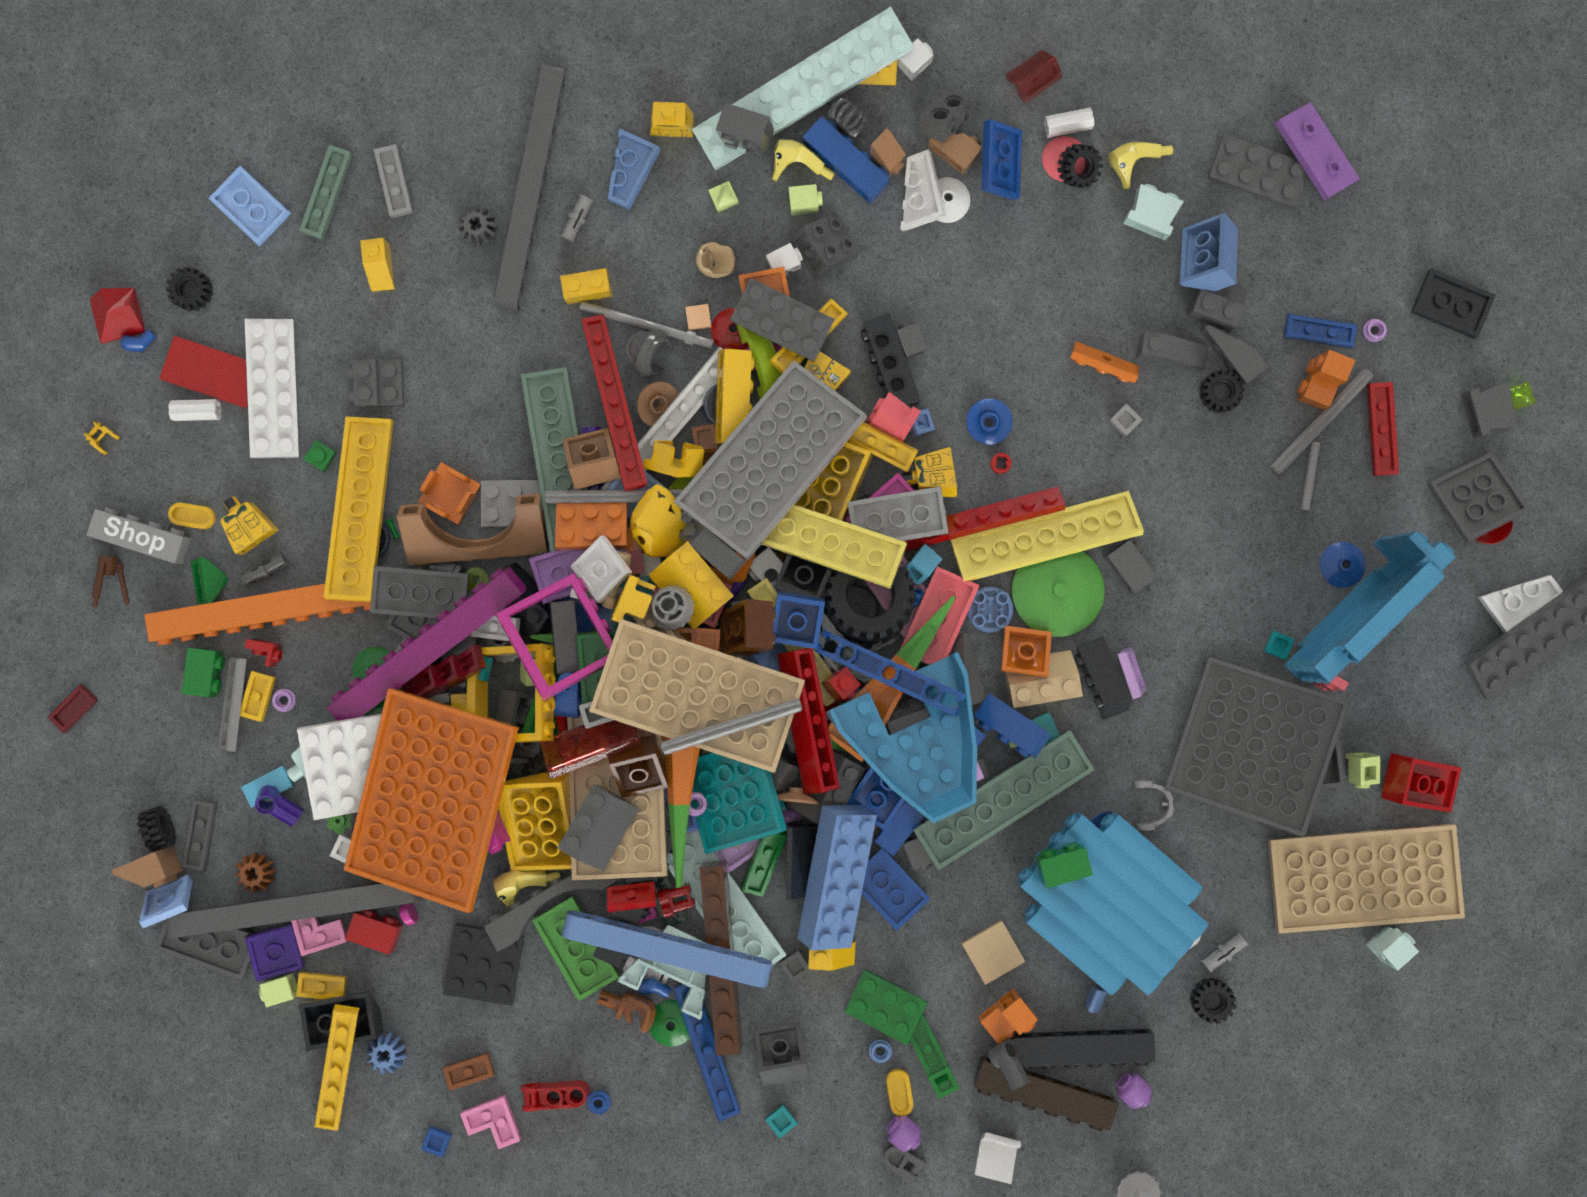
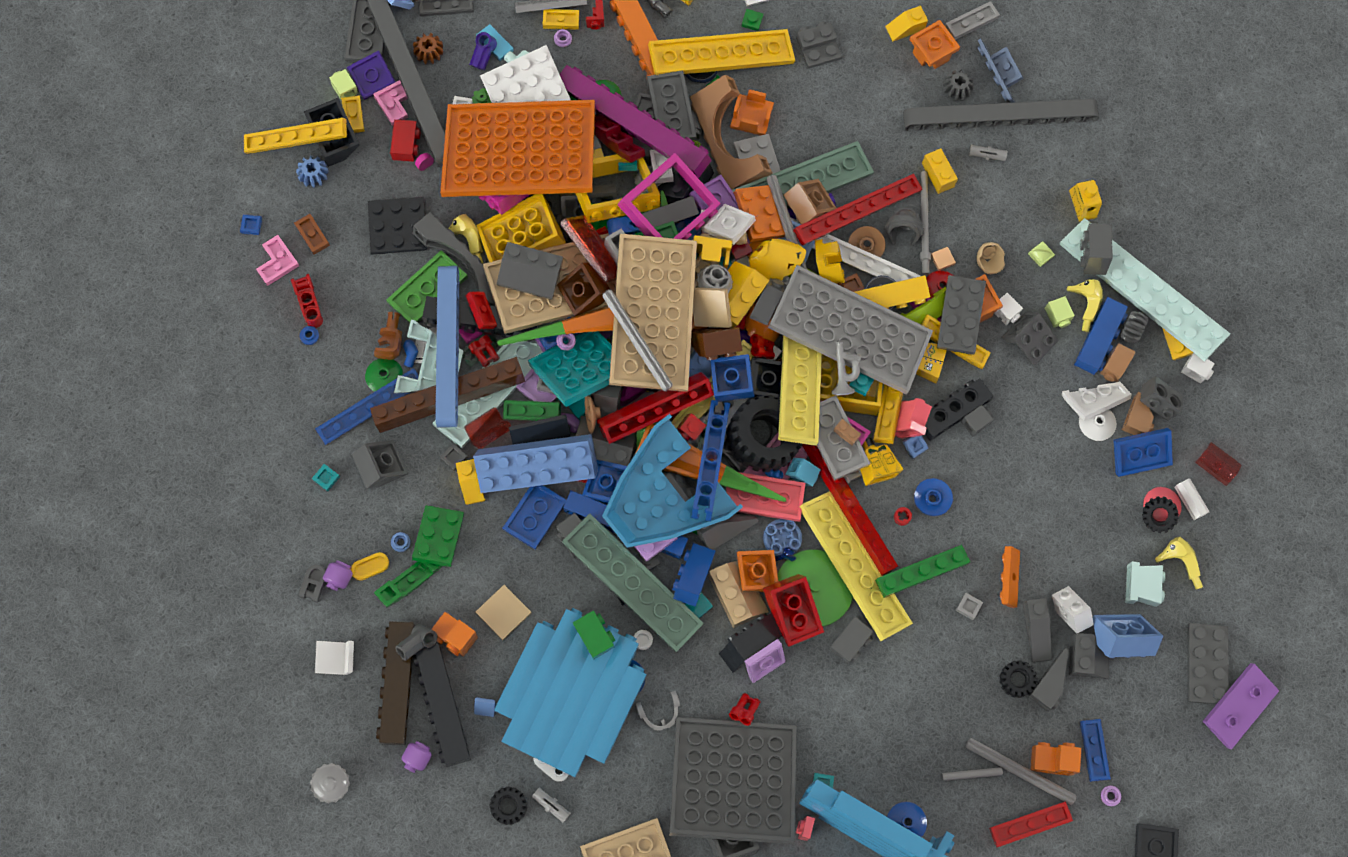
camera: 65 degrees right, 15 degrees down
(416, 240) = (934, 45): none -> orange panel
(468, 163) = (1004, 68): none -> sand blue bracket
(631, 168) = (1044, 182): medium blue wing -> none
(706, 622) = (711, 307): none -> tan tile
(763, 576) = (758, 344): none -> red piece
(773, 919) = (486, 428): none -> clear red panel
(838, 467) = (862, 384): none -> teal plate
(842, 491) = (842, 387): none -> light grey piece
(898, 502) = (847, 432): none -> medium nougat piece
(1014, 612) = (786, 554): none -> clear blue hand
(1066, 802) = (644, 639): none -> white tile
(1072, 461) = (922, 571): none -> green plate
(1083, 624) = (794, 609): none -> red slope
(1165, 304) = (1072, 609): none -> white brick
(1182, 715) = (744, 715): none -> red piece

